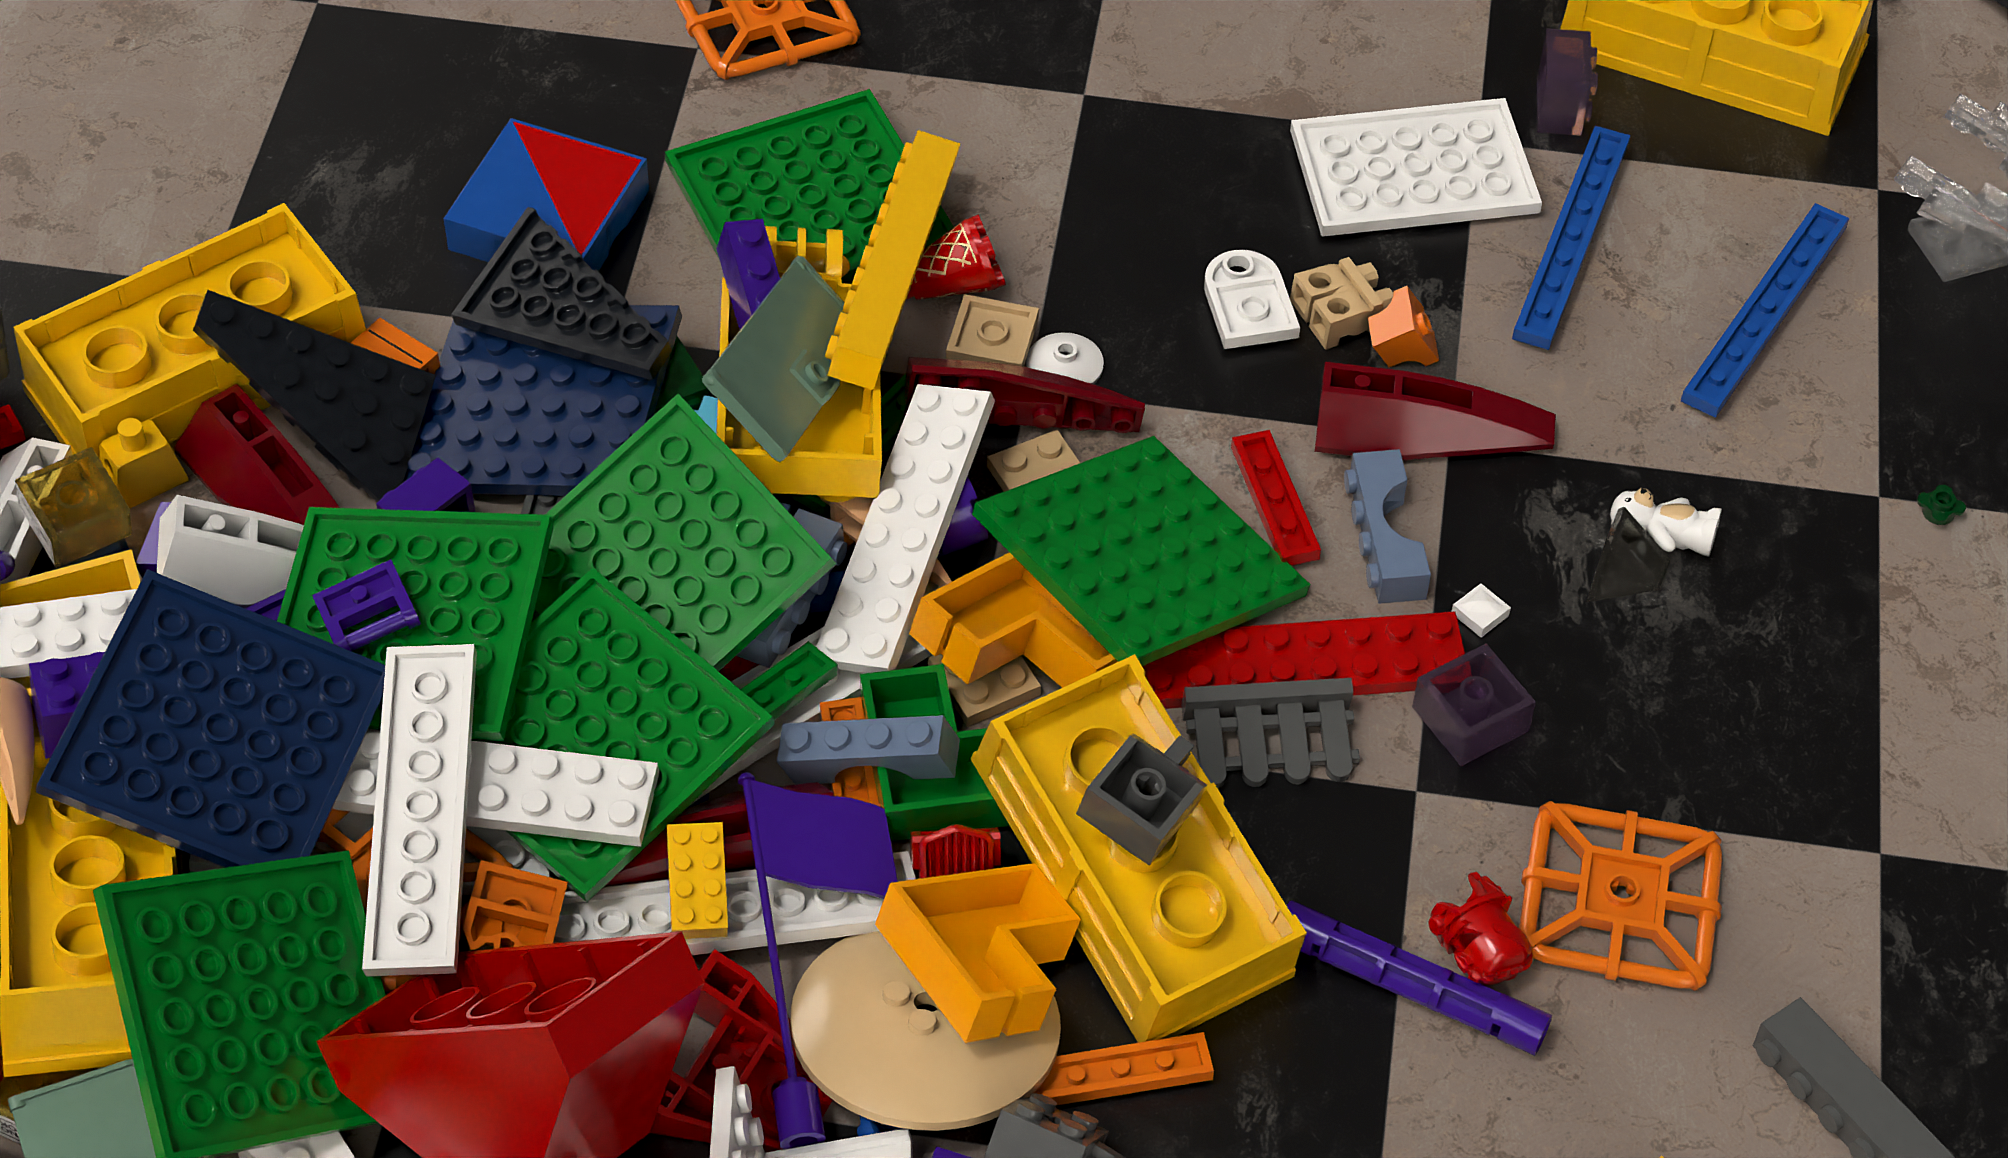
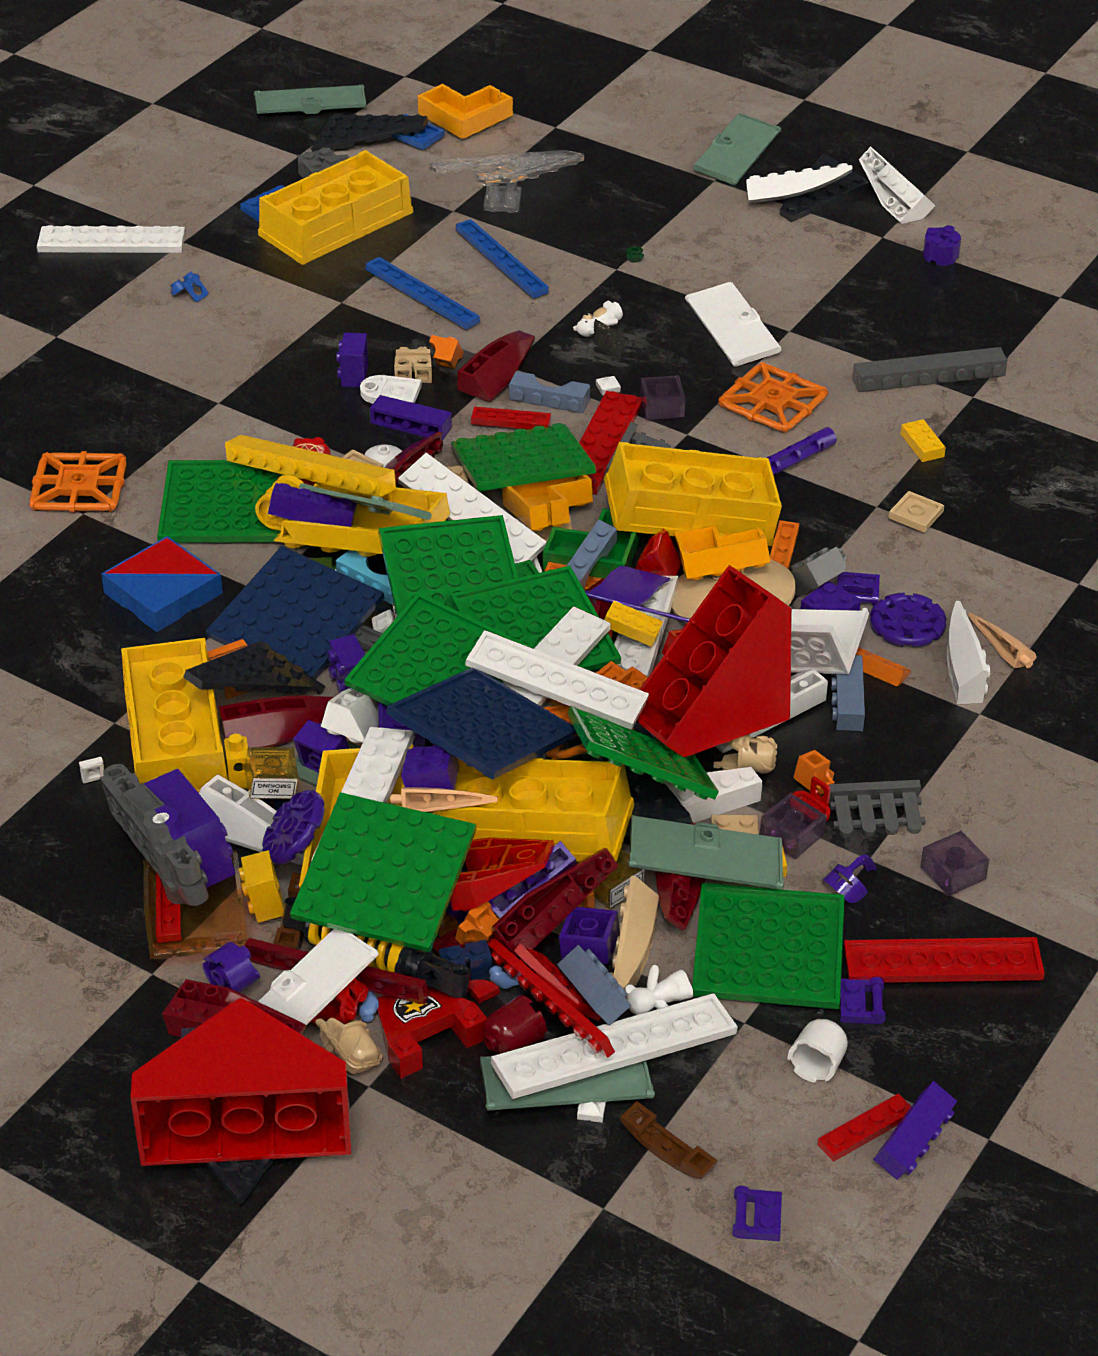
camera: 65 degrees left, 10 degrees down
(59, 291) = (91, 769): none -> white tile
(362, 599) = (422, 666): dark purple plate -> none
(552, 300) = (241, 589): black wing -> none
(1143, 796) = (695, 461): dark grey hinge -> none
(1184, 355) = (410, 417): none -> dark purple brick
(1281, 210) = (352, 359): none -> dark purple brick
(1414, 167) = (346, 310): white plate -> none
(1482, 934) = (776, 430): red helmet -> none
(1565, 82) = (338, 259): clear purple brick -> none
(1822, 745) = (733, 324): none -> white door

